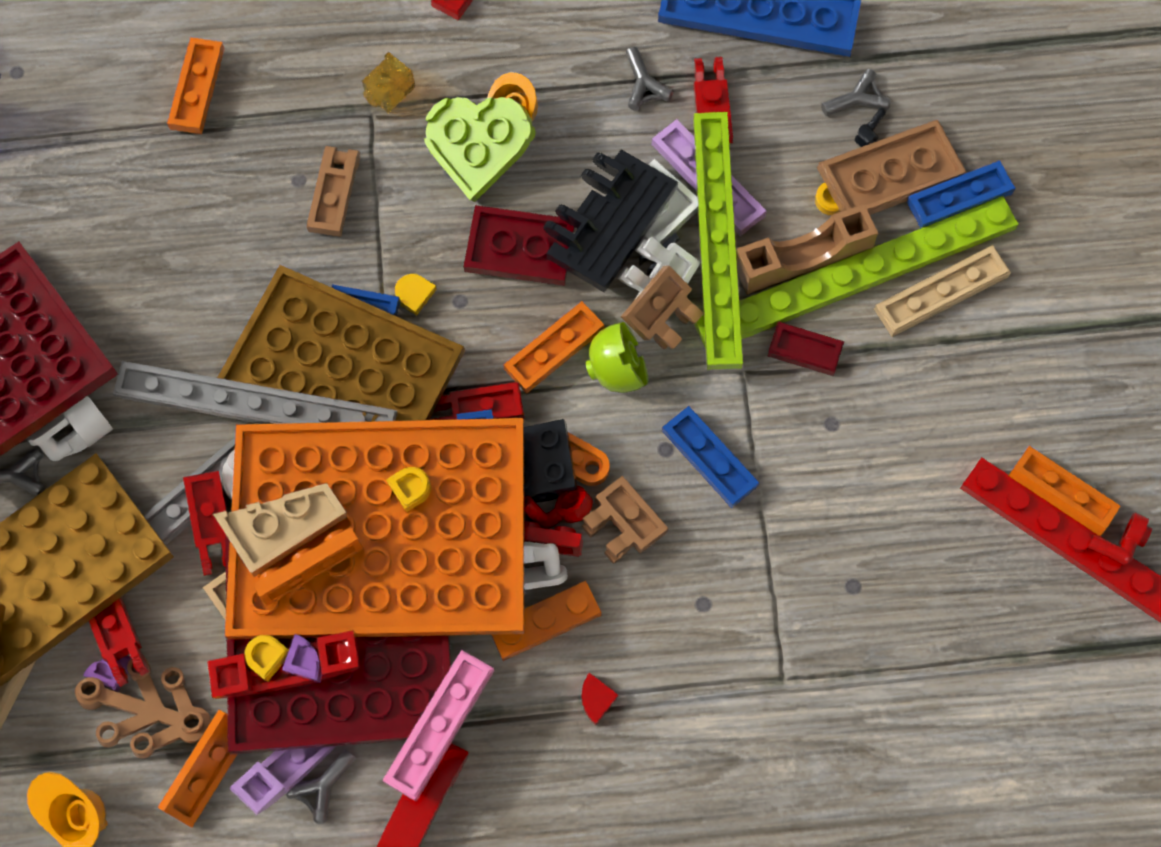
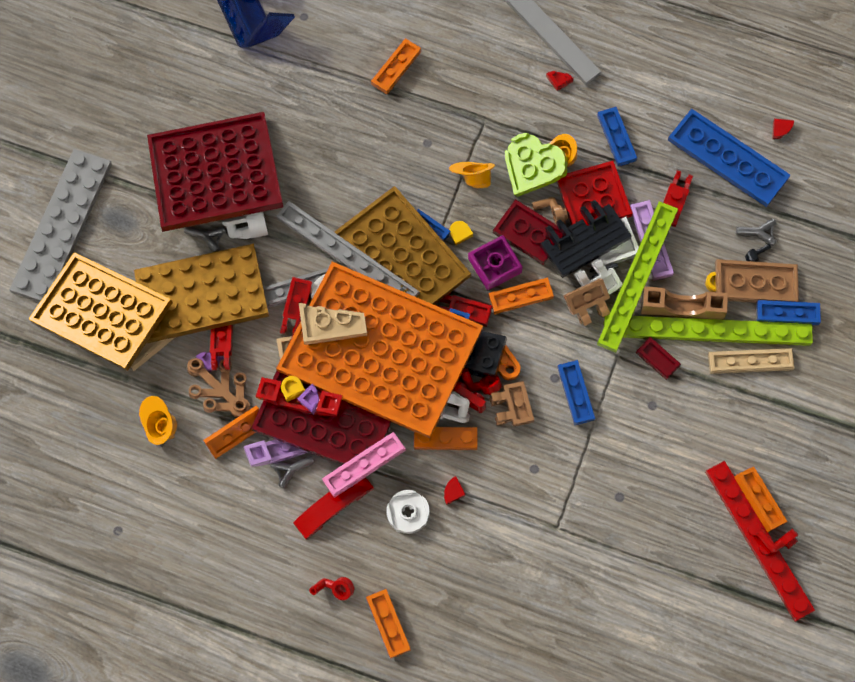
camera: 25 degrees right, 0 degrees up
(307, 565) = (334, 351): orange plate -> none
(333, 191) = (442, 157): medium nougat plate -> none
(388, 83) = (501, 116): clear yellow brick -> none
(395, 194) = (475, 174): none -> light orange piece
(410, 487) = (406, 335): yellow tile -> none
(489, 294) = (501, 252): none -> magenta brick
(544, 744) = (401, 522): none -> white plate
(547, 195) = (557, 211): none -> medium nougat plate
(580, 131) = (590, 184): none -> red plate
(581, 47) = (617, 136): none -> blue plate
(616, 360) = (550, 318): lime cylinder -> none
(644, 82) = (643, 171): flat silver piece -> none

